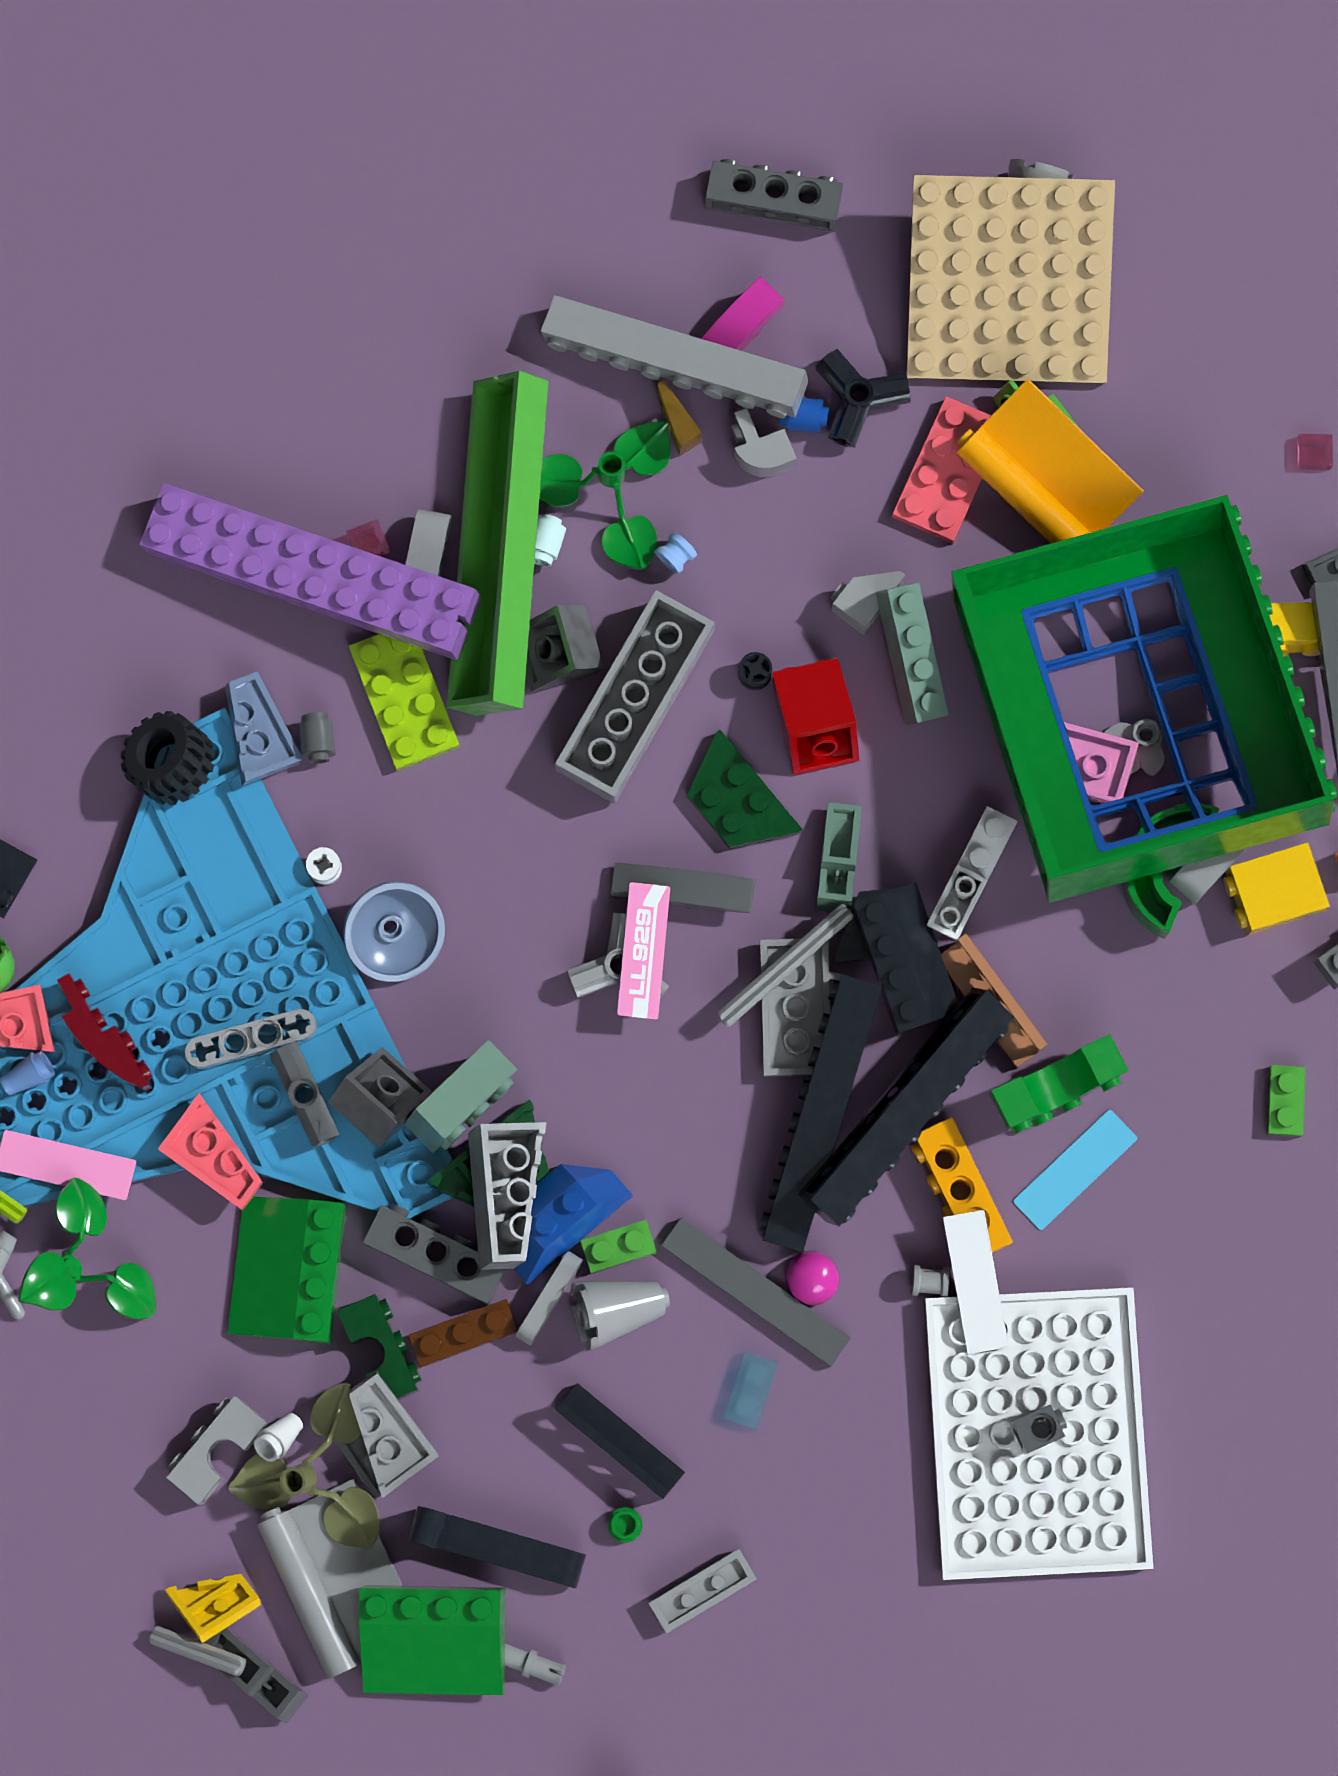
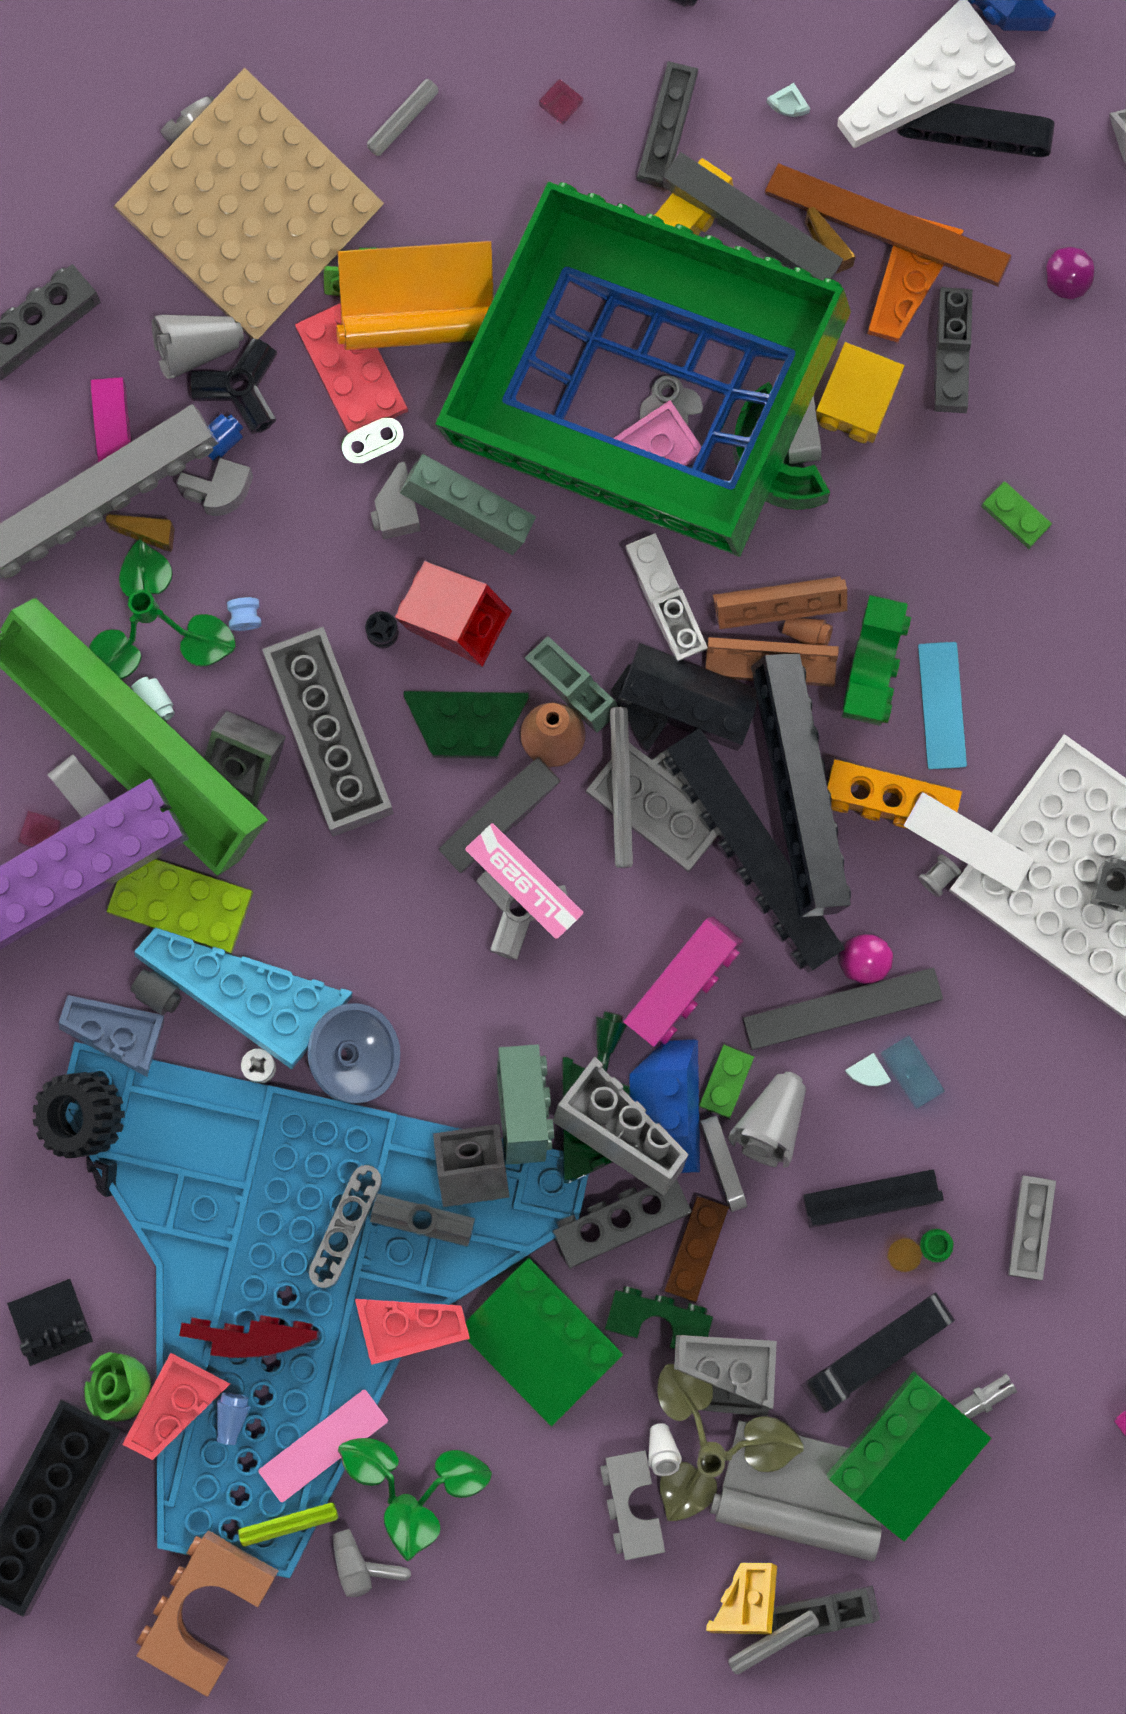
camera: 50 degrees left, 0 degrees up
(143, 820) = (109, 1174): none -> black tile
(374, 817) = (249, 995): none -> medium azure wing
(580, 1119) = (608, 1033): none -> dark green cone
(595, 1505) = (904, 1255): none -> clear yellow tile
(670, 1144) = (683, 981): none -> dark pink wedge
(721, 1355) = (868, 1072): none -> light aqua tile
(785, 887) = (553, 734): none -> nougat cone
(863, 329) = (193, 340): none -> light grey cone
(902, 537) = (371, 439): none -> plate
(1043, 1011) = (808, 631): none -> nougat cone
(1046, 968) = (780, 602): none -> nougat fence
(1191, 338) = (402, 117): none -> light grey axle

